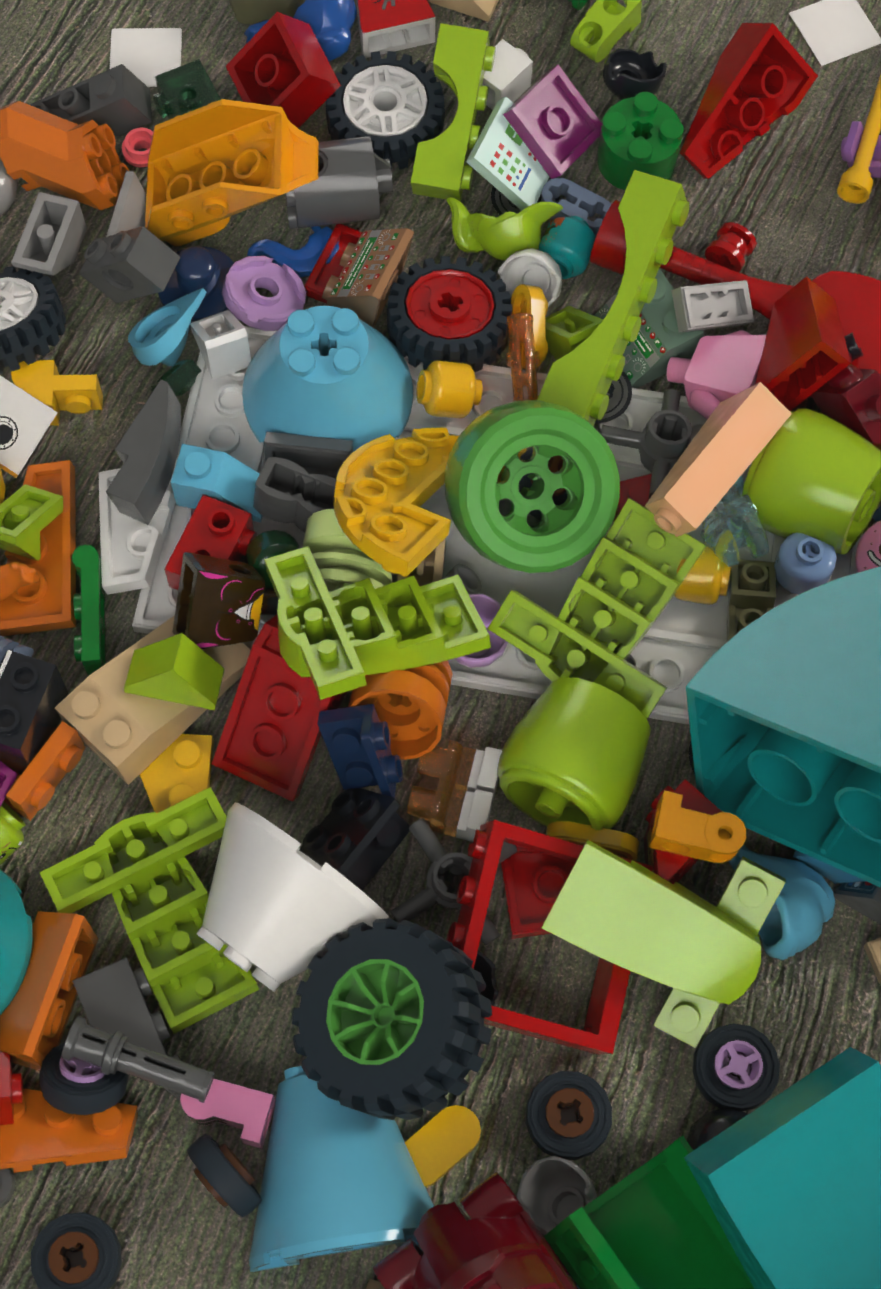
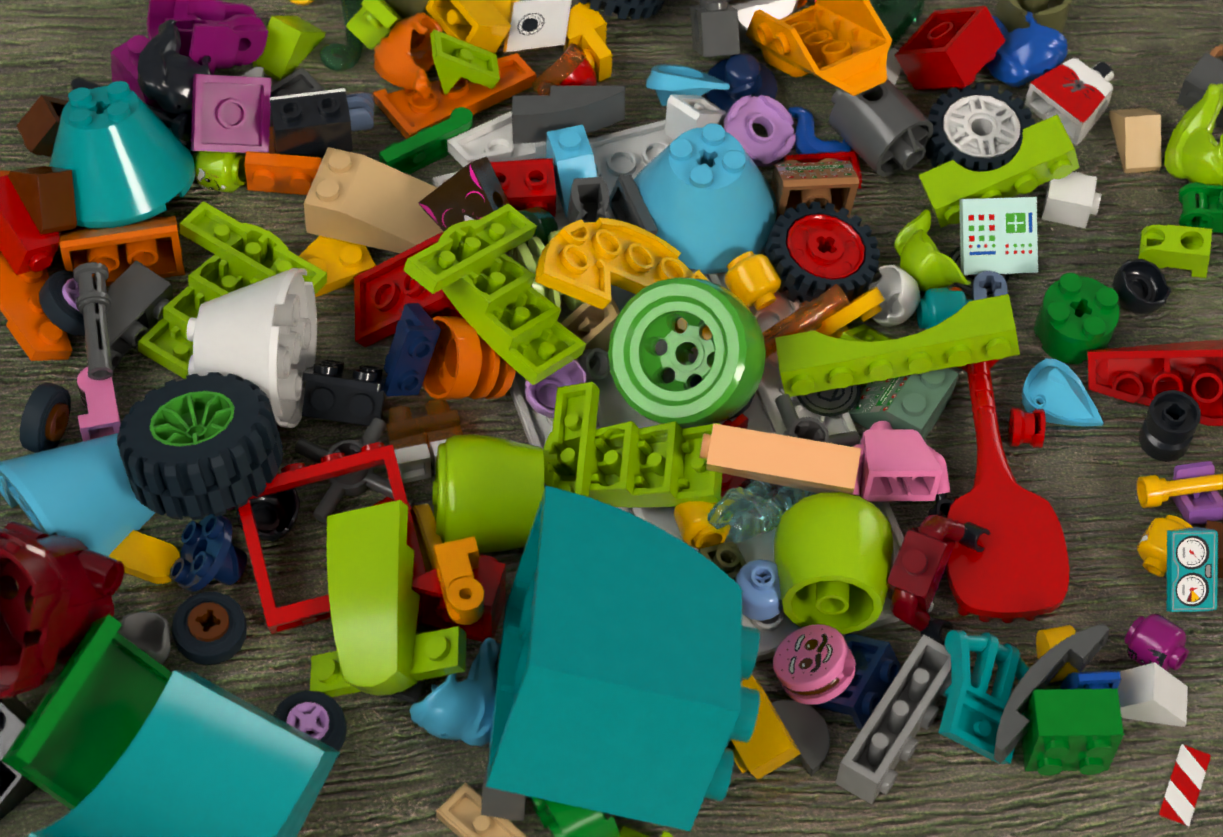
camera: 60 degrees right, 10 degrees down
(94, 432) = (568, 70): none -> clear orange piece
(175, 673) = (398, 208): lime slope -> none
(180, 376) = (646, 110): clear green tile -> none
(500, 1087) = (208, 555): none -> dark blue plate
(554, 122) = (1047, 245): magenta tile -> none
(710, 204) = (1060, 395): none -> medium azure piece
(712, 306) = (945, 422): light grey plate -> none
(795, 133) = (1169, 425): none -> black wheel
(802, 344) = (943, 490): red slope -> none

